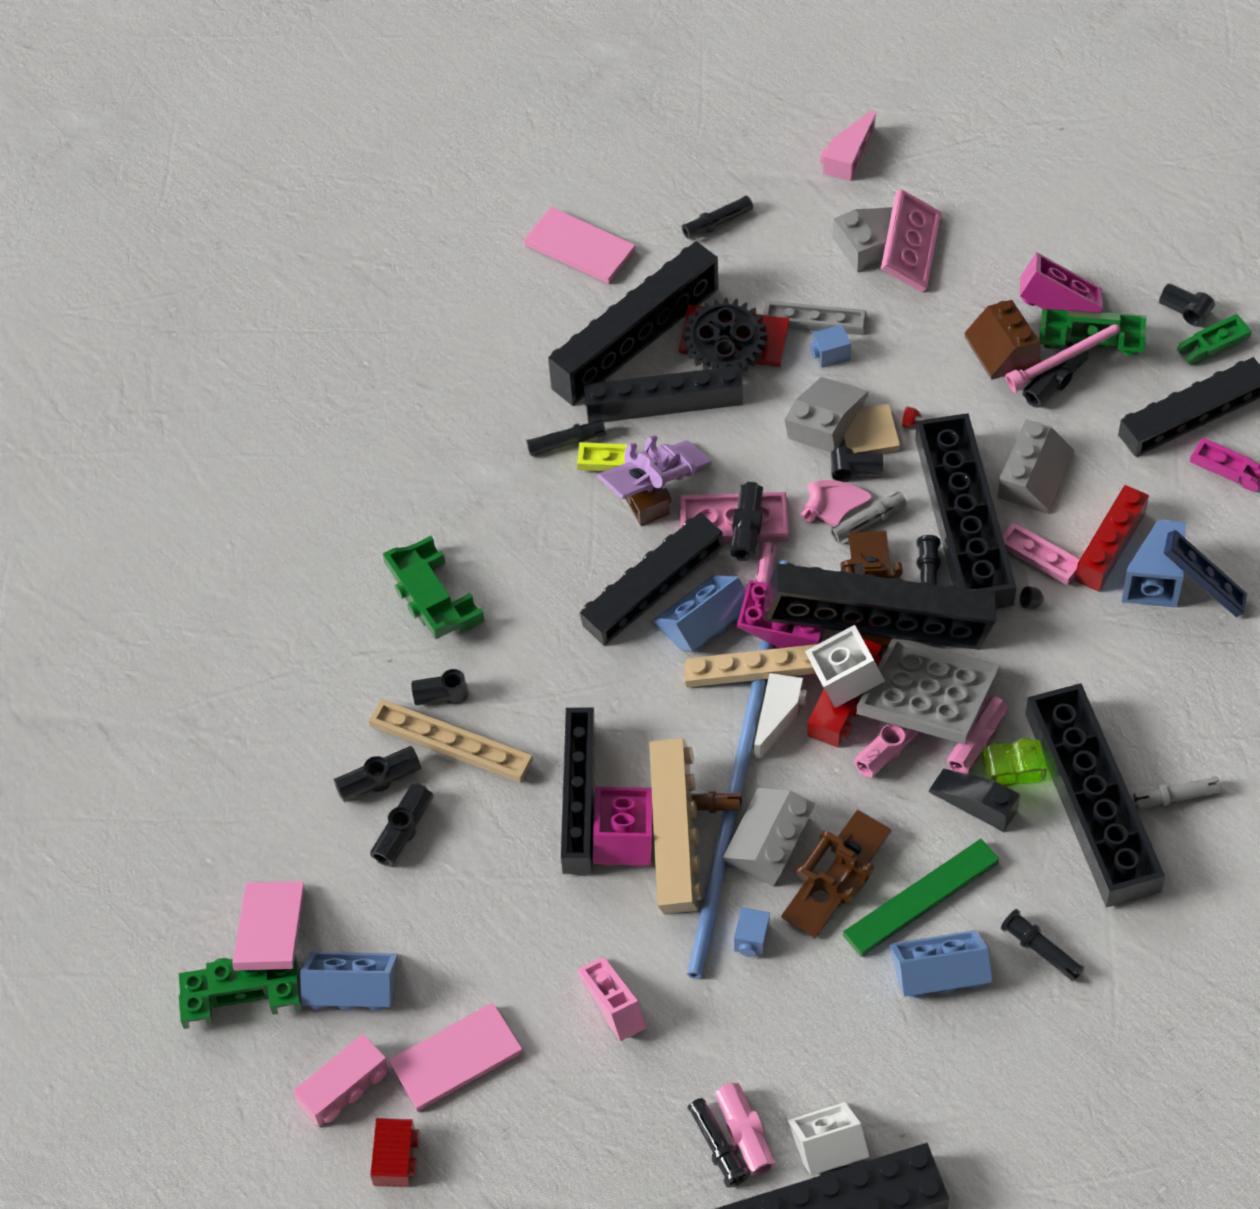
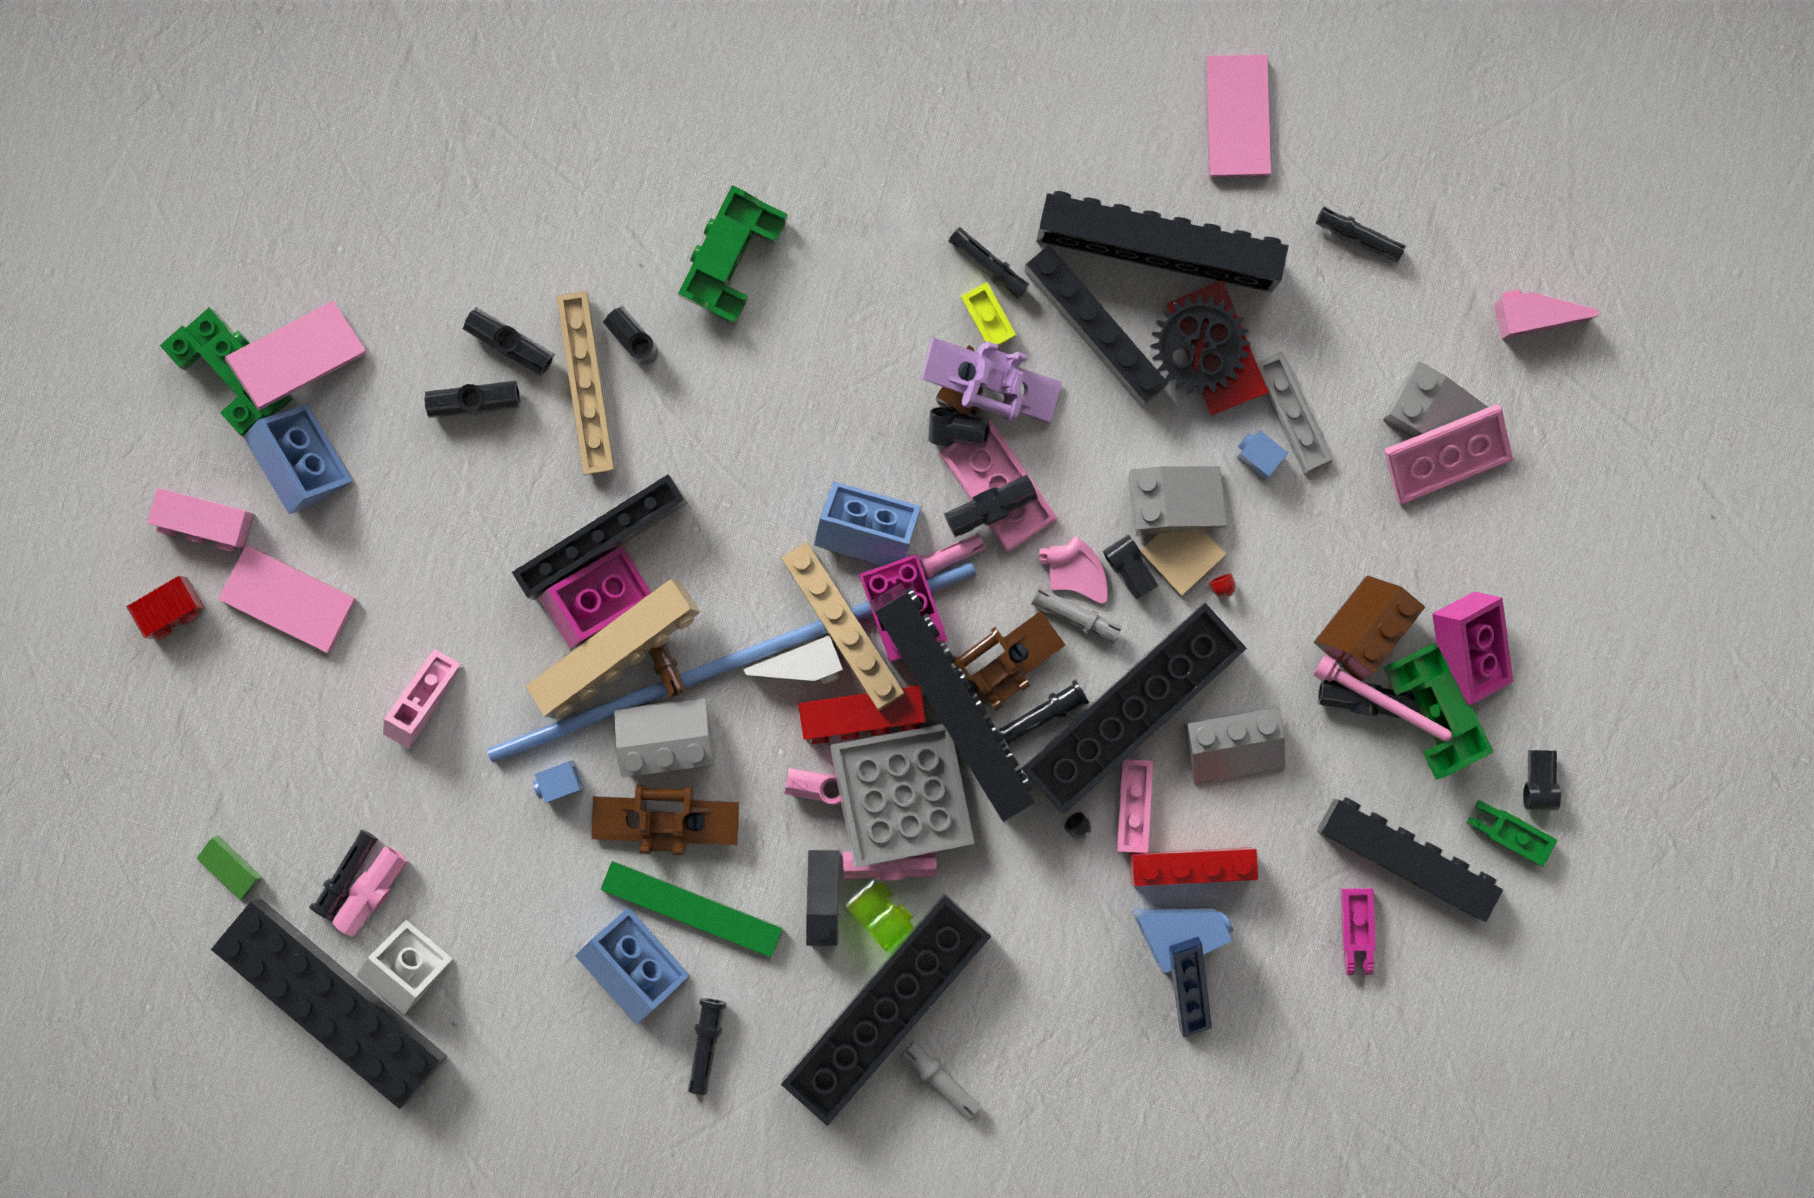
camera: 60 degrees right, 30 degrees up
(651, 578) = (871, 455): black brick -> none
(669, 517) = (949, 427): none -> black piece
(844, 666) = (864, 708): white slope -> none

